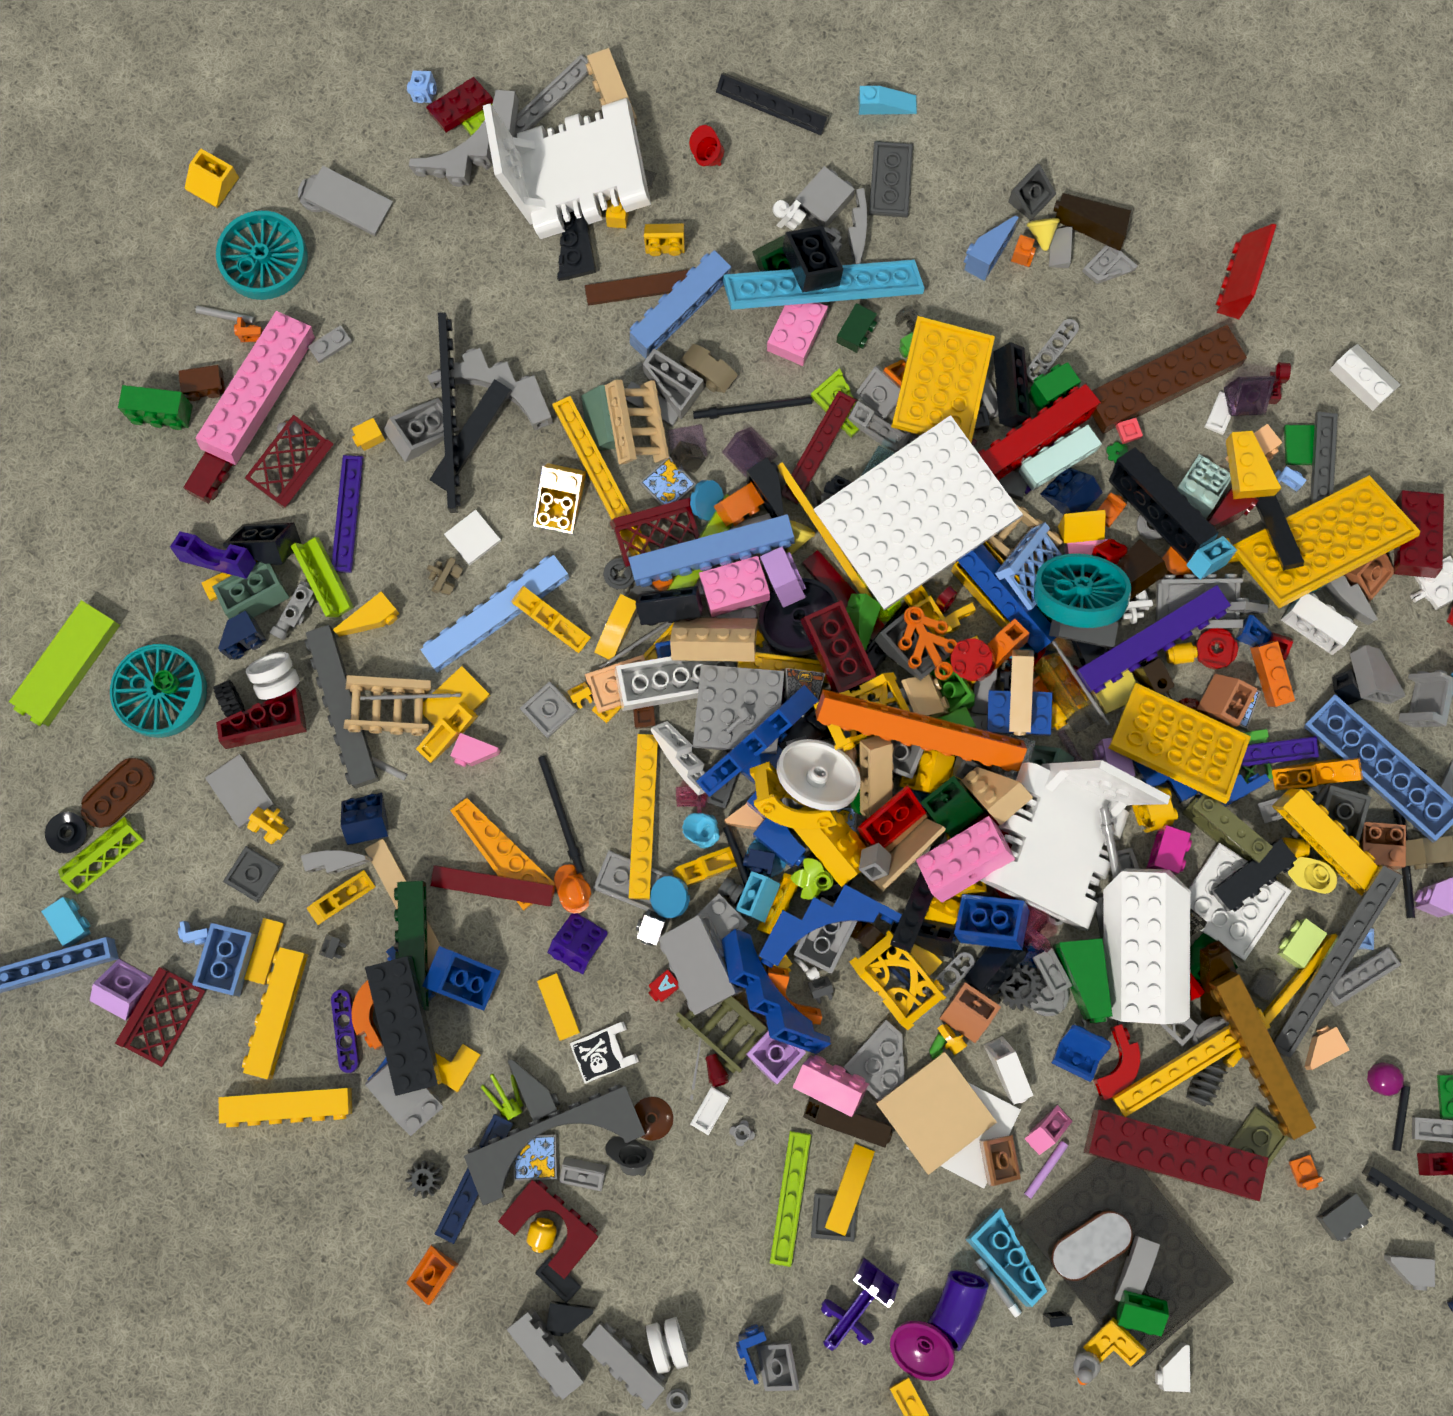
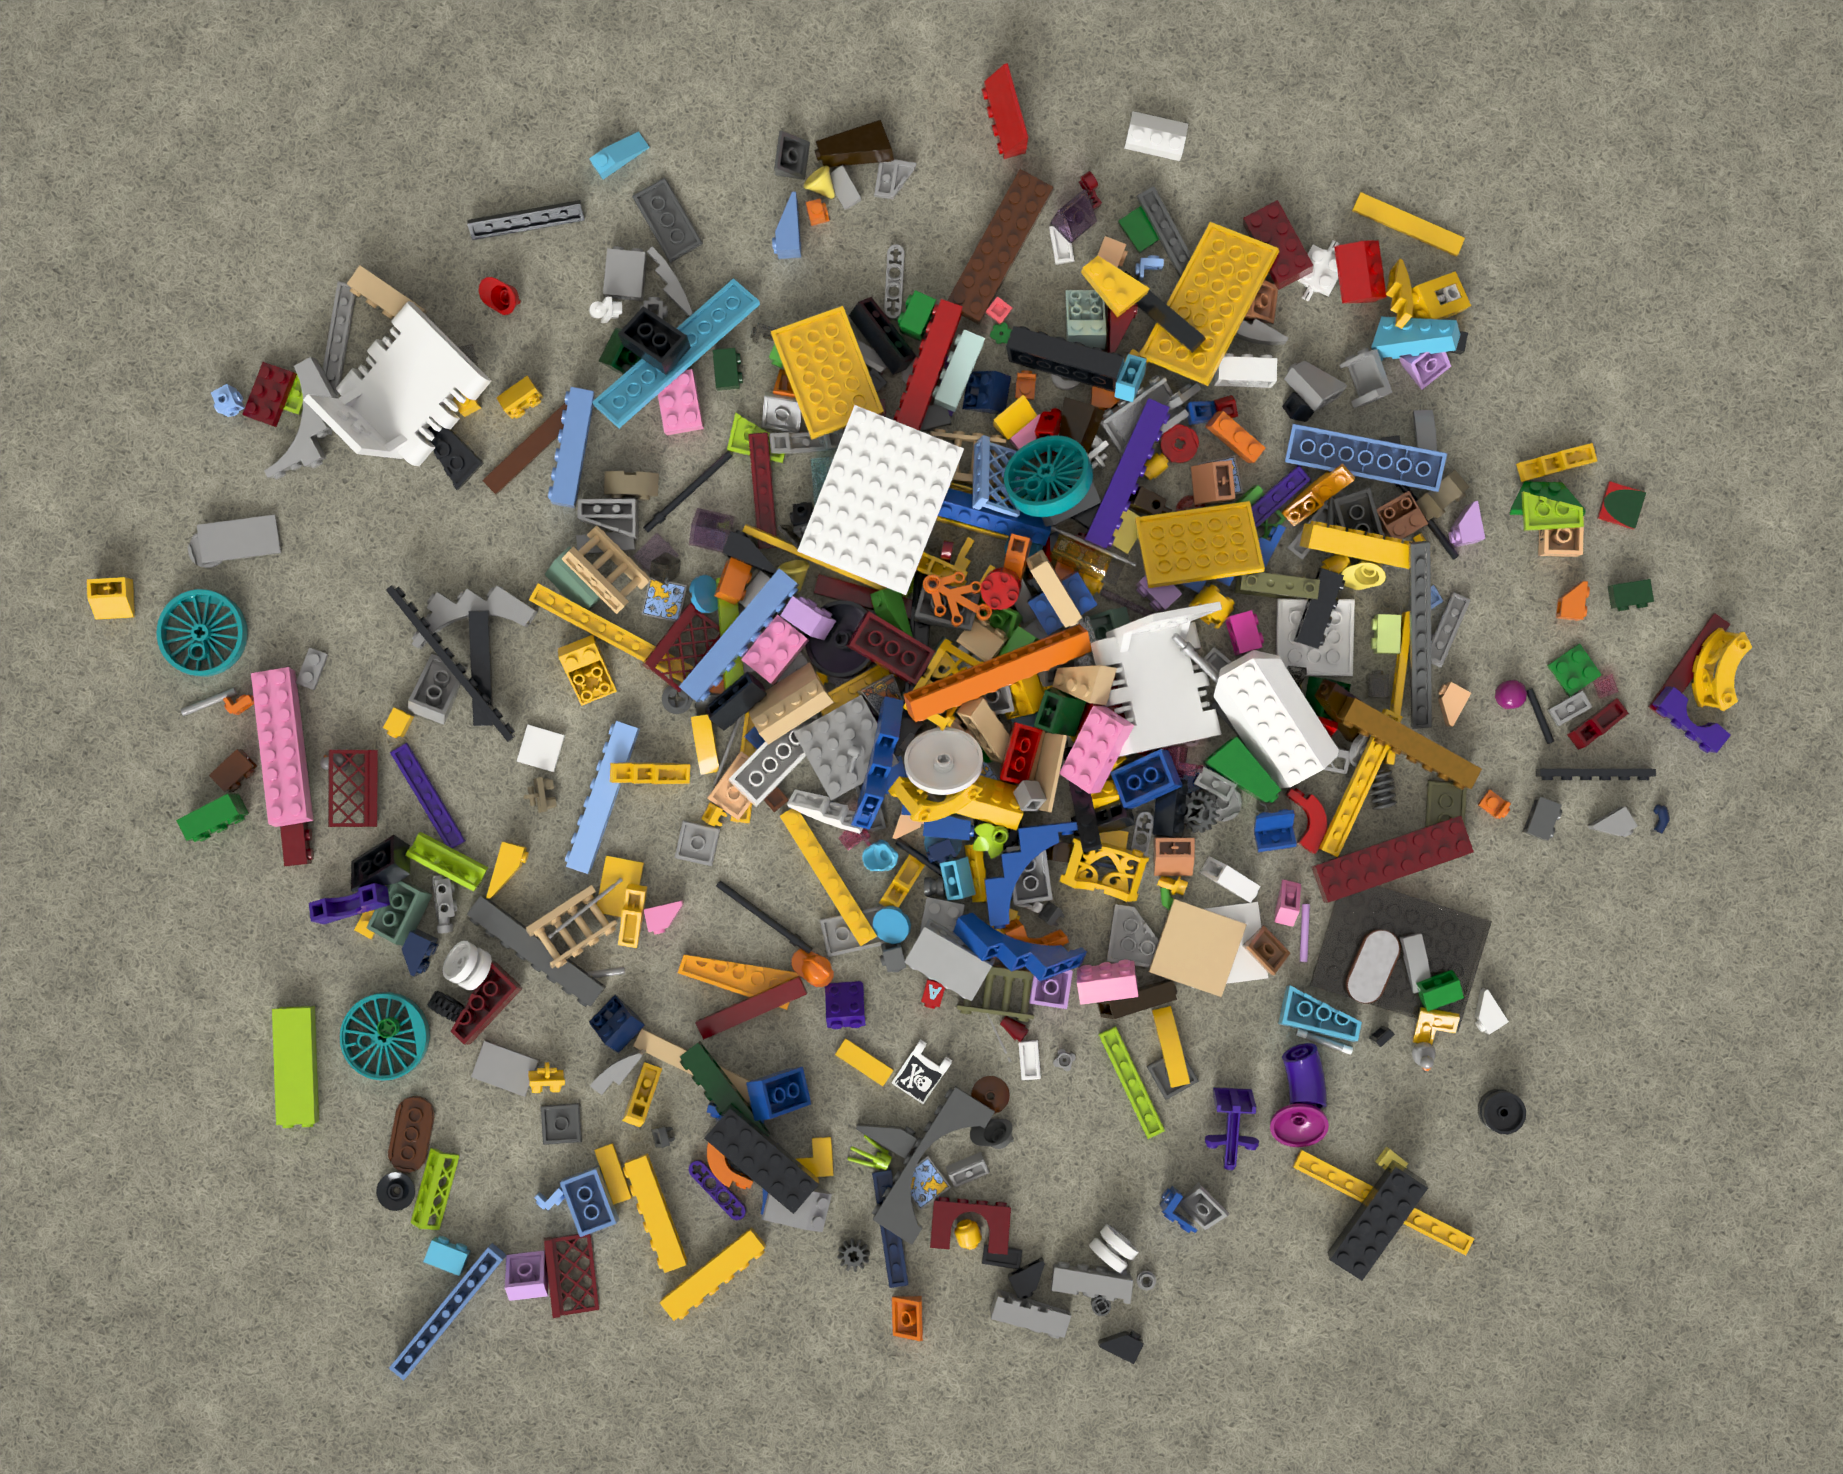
camera: 35 degrees left, 10 degrees up
(620, 1391) = (1097, 1304): none -> dark grey wheel

